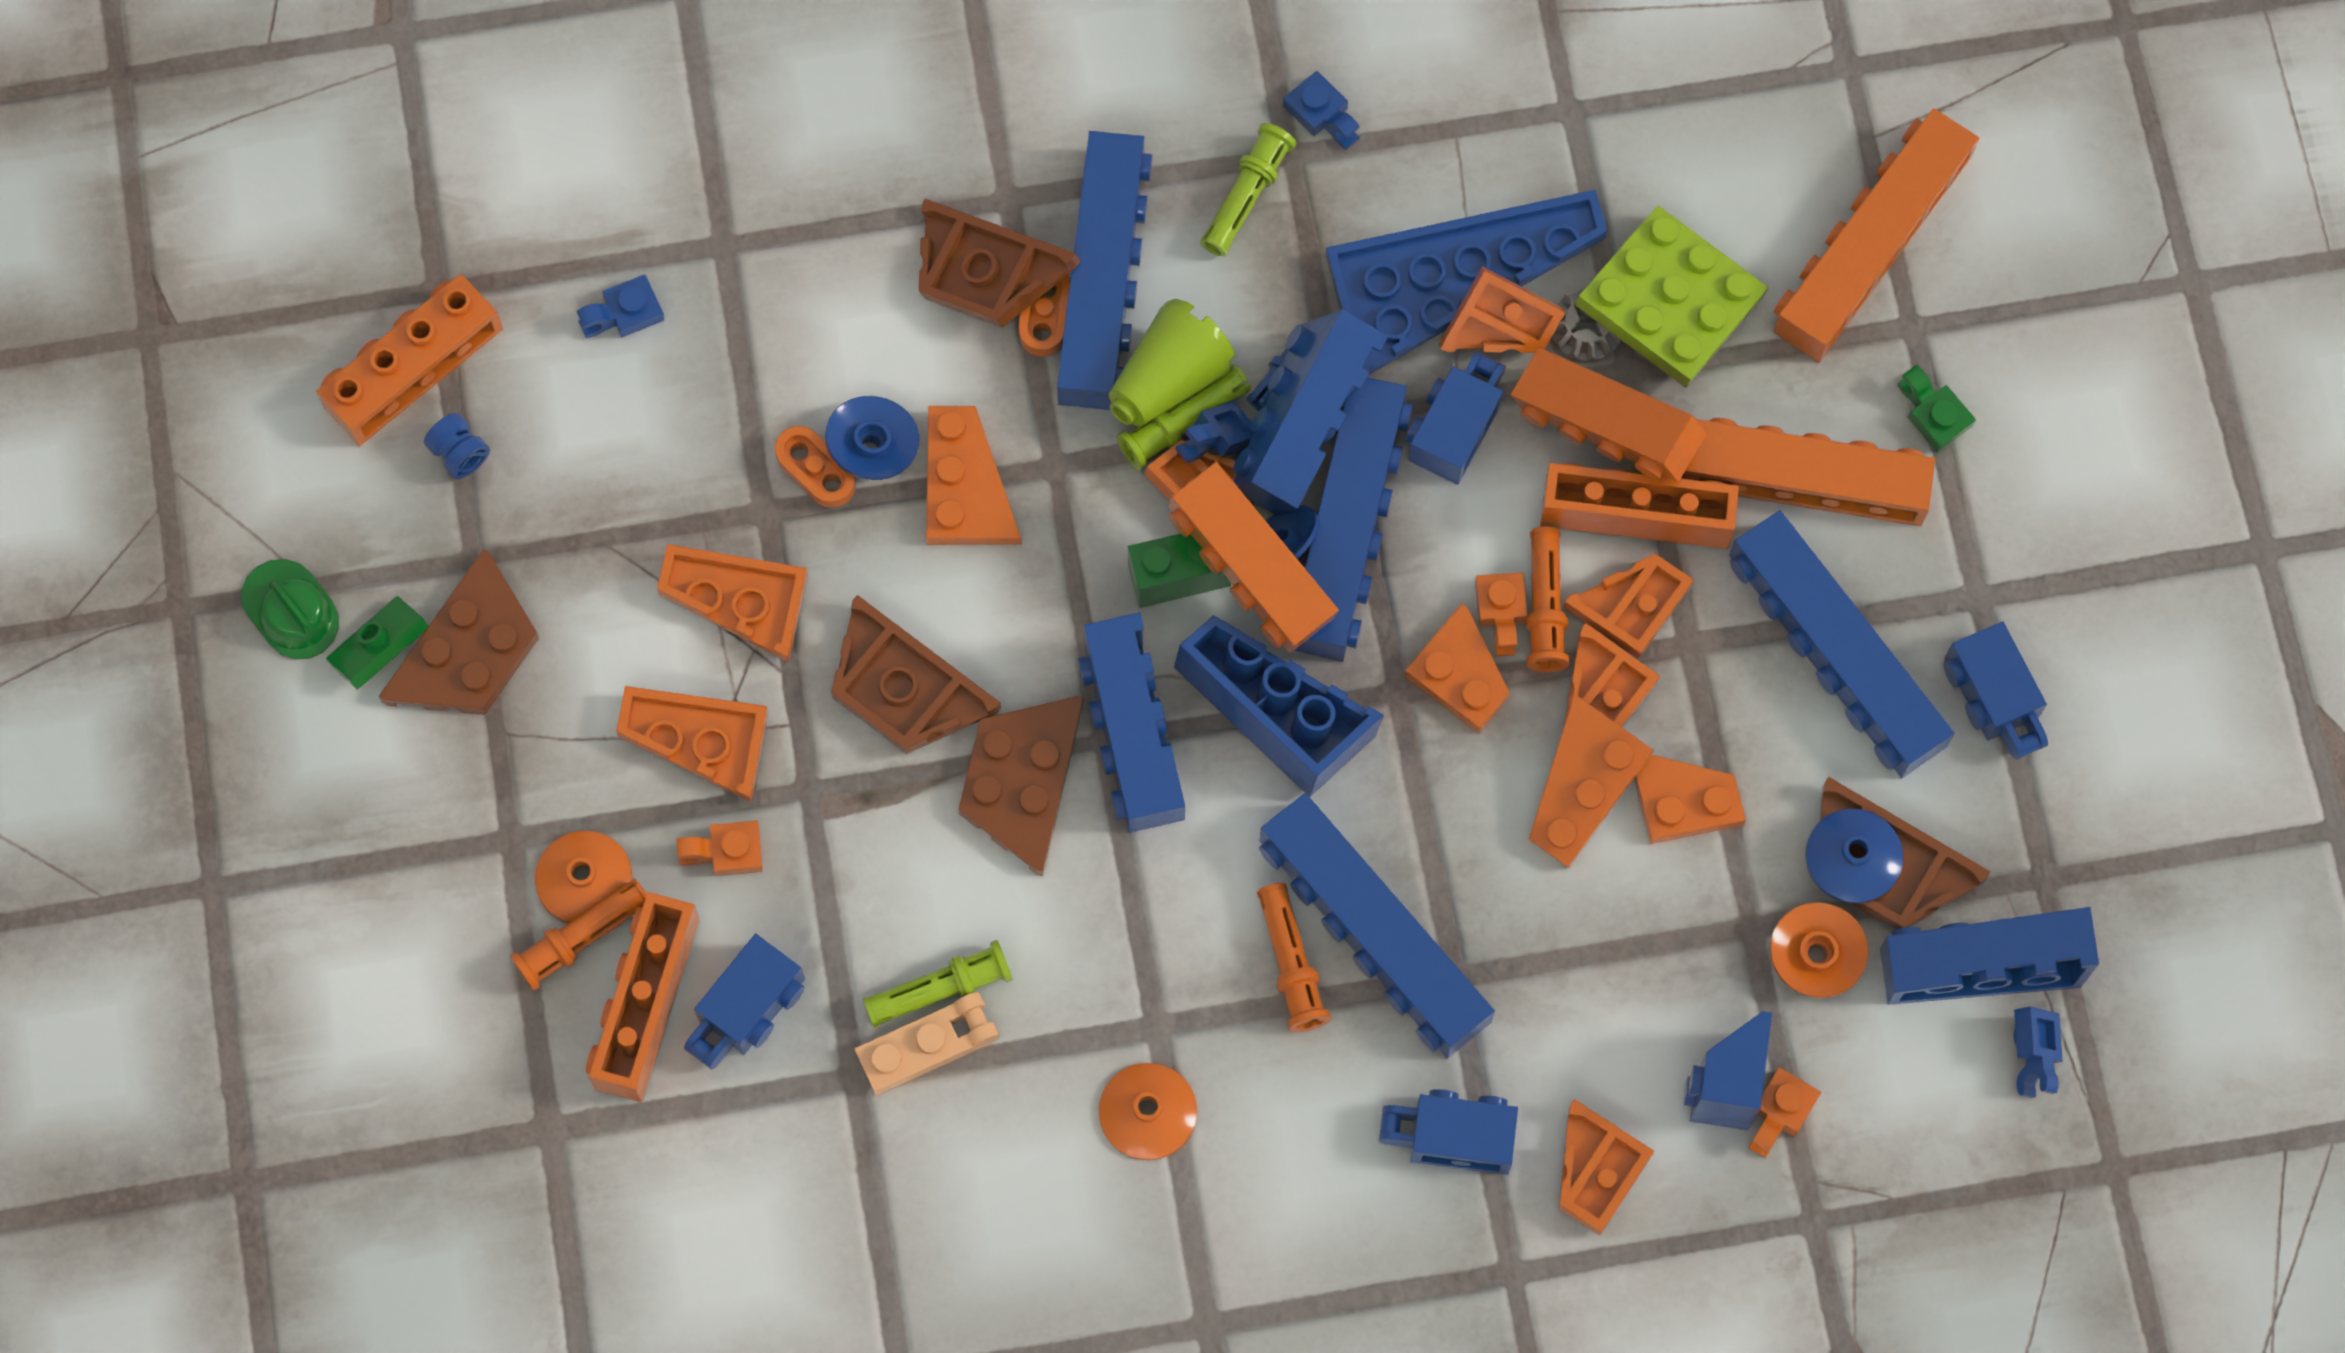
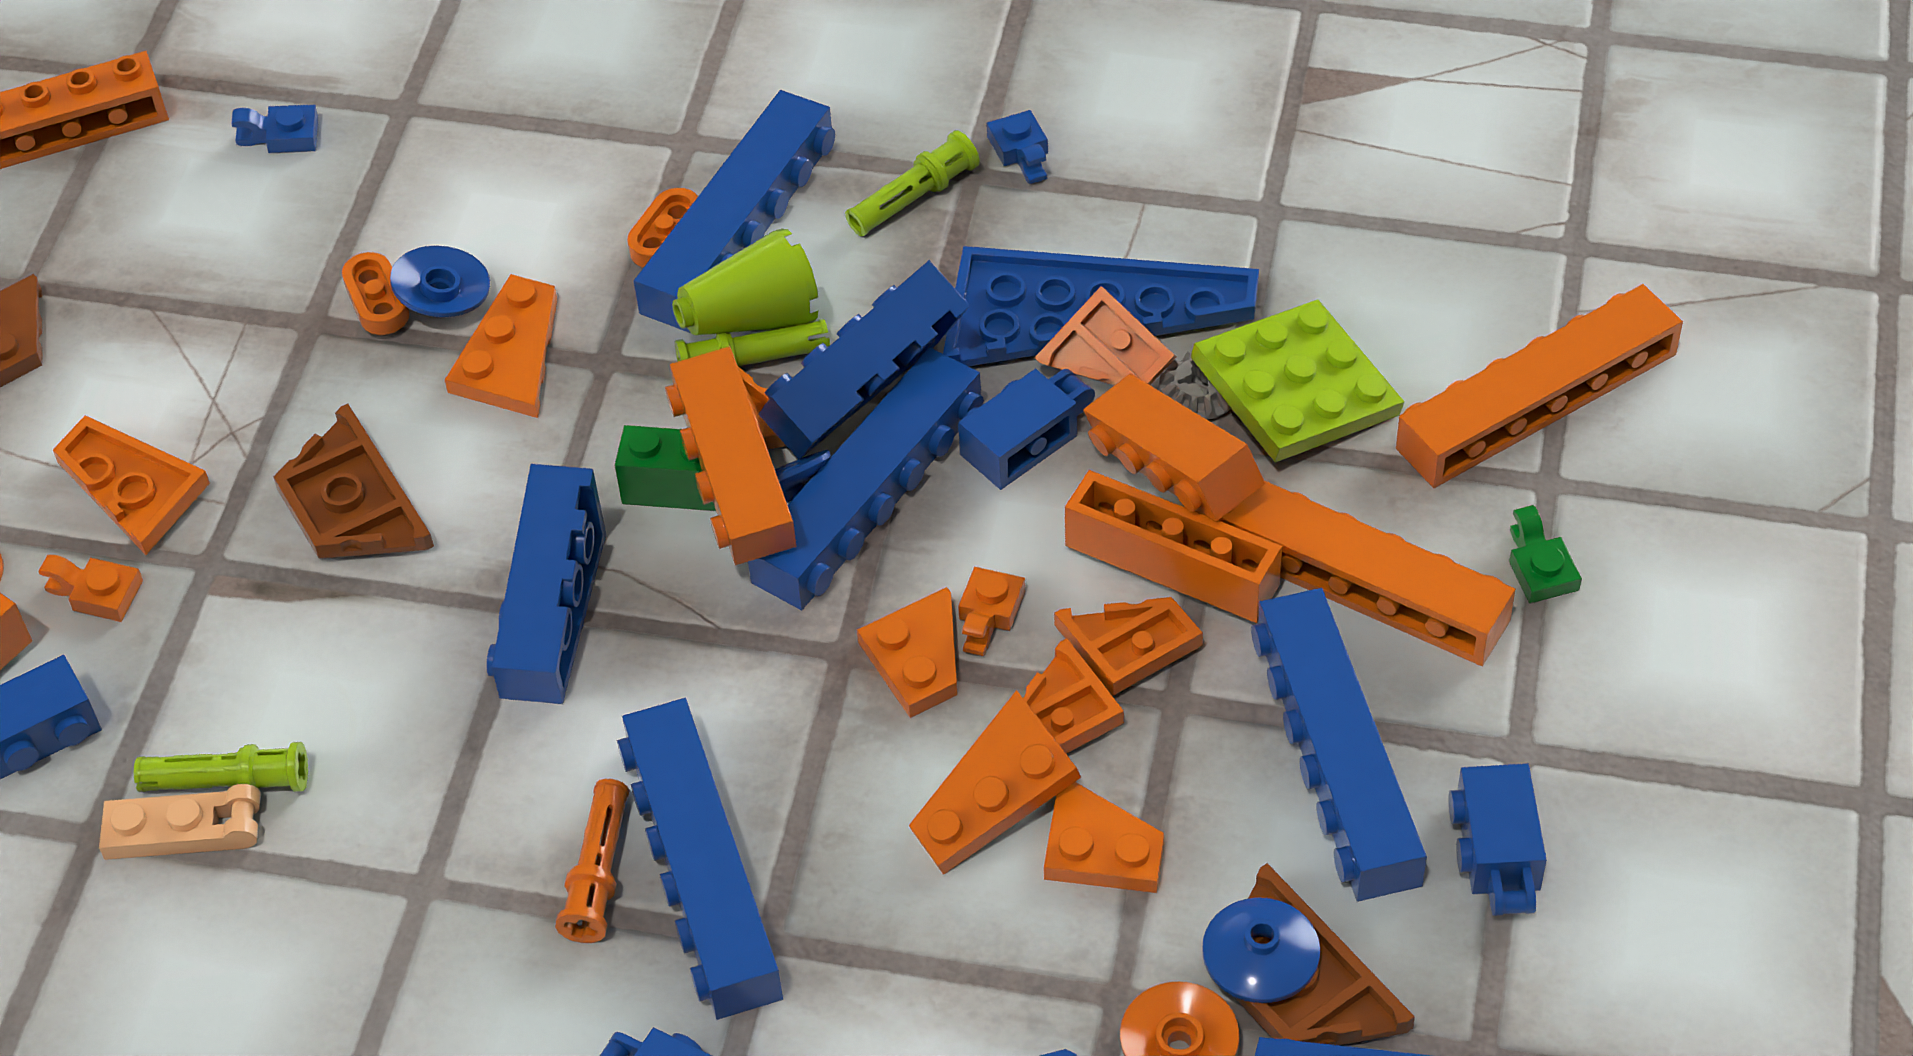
camera: 25 degrees right, 20 degrees down
(457, 446) = (62, 186): blue wheel -> none
(737, 593) = (240, 375): orange wing -> none
(985, 266) = (627, 174): dark orange wing -> none
(1021, 776) = (418, 612): dark orange wing -> none
(1147, 1135) = (371, 984): orange dish -> none
(1221, 428) = (768, 361): blue plate -> none
(1275, 704) = (708, 623): blue wedge -> none
(1546, 619) = (1024, 646): orange pin -> none

